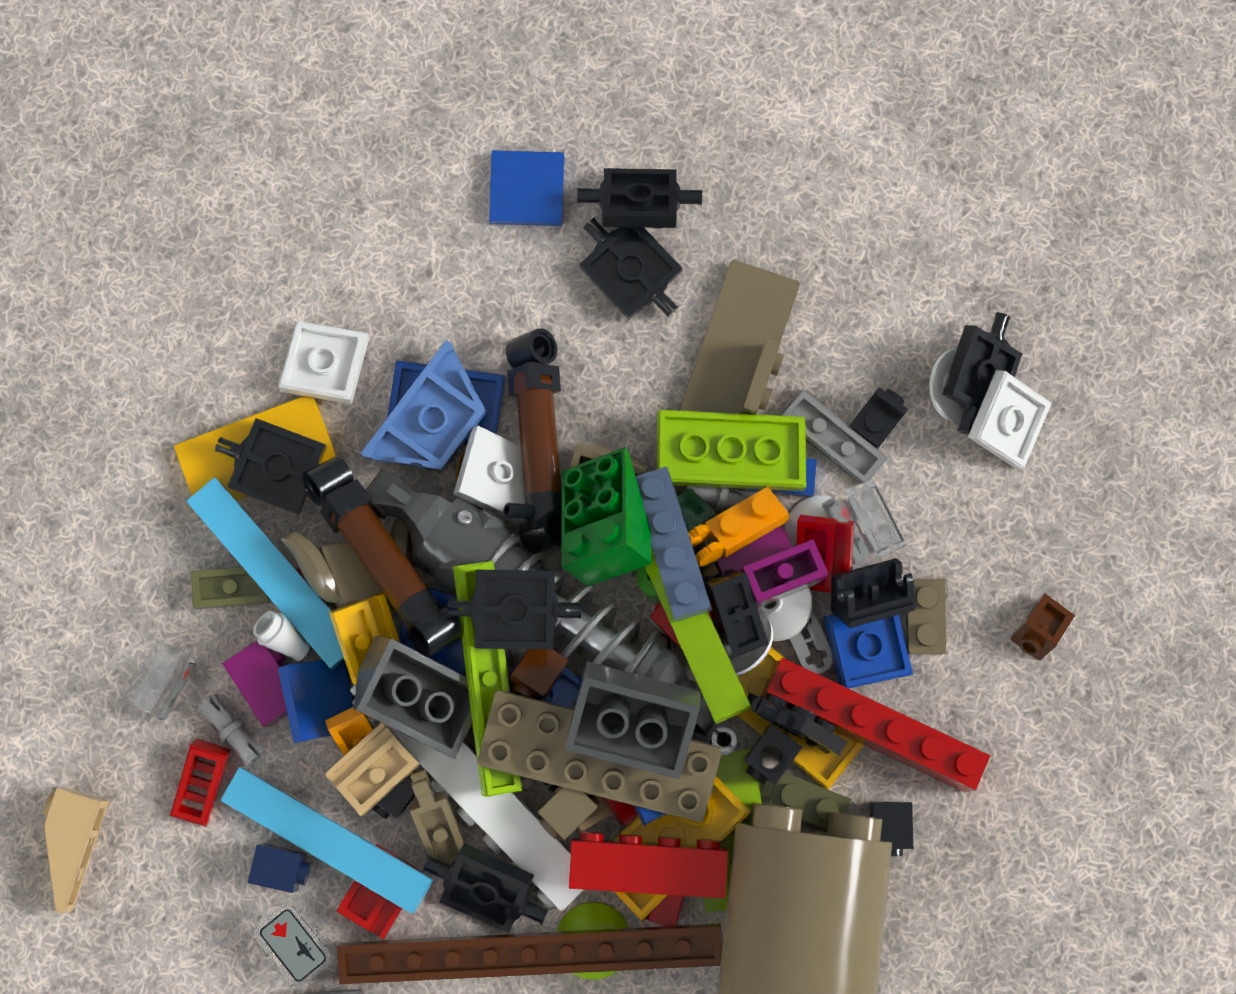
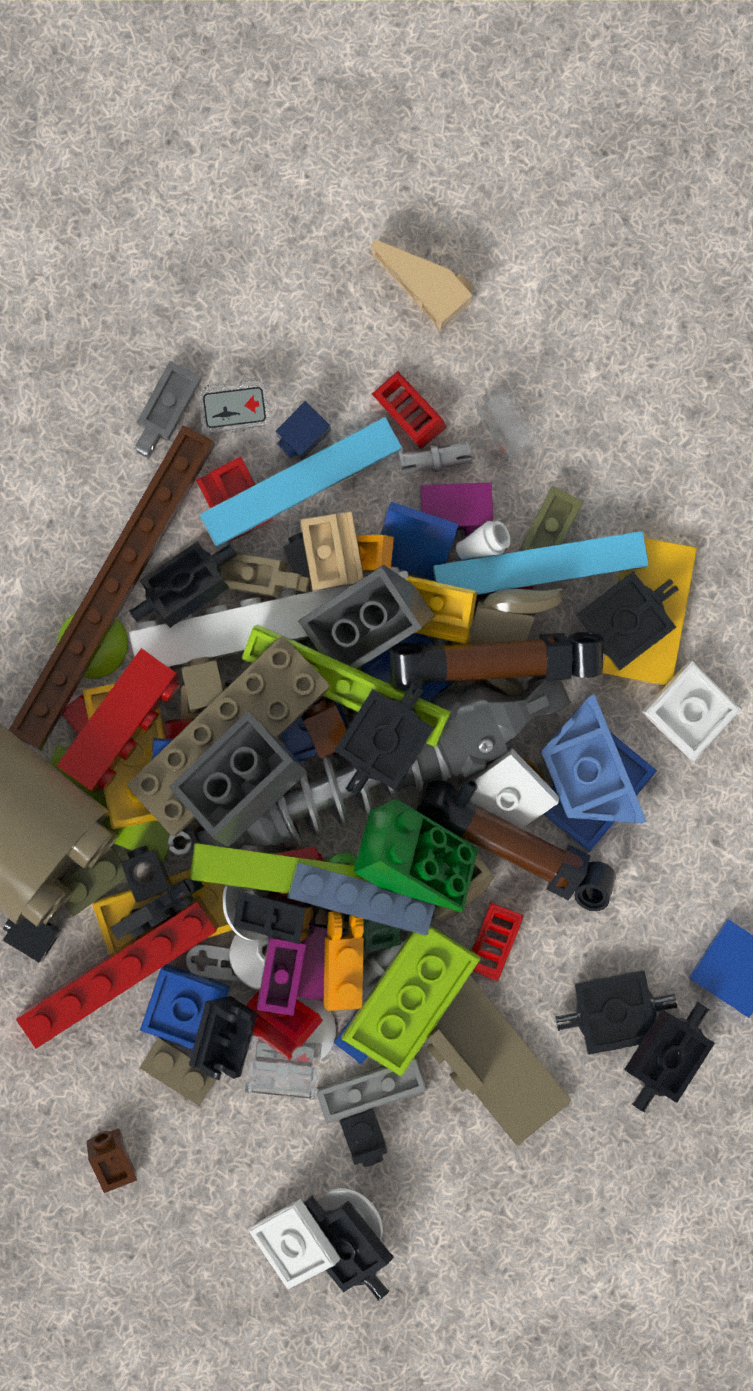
camera: 125 degrees right, 5 degrees up
(605, 401) = (503, 913): none -> red slope

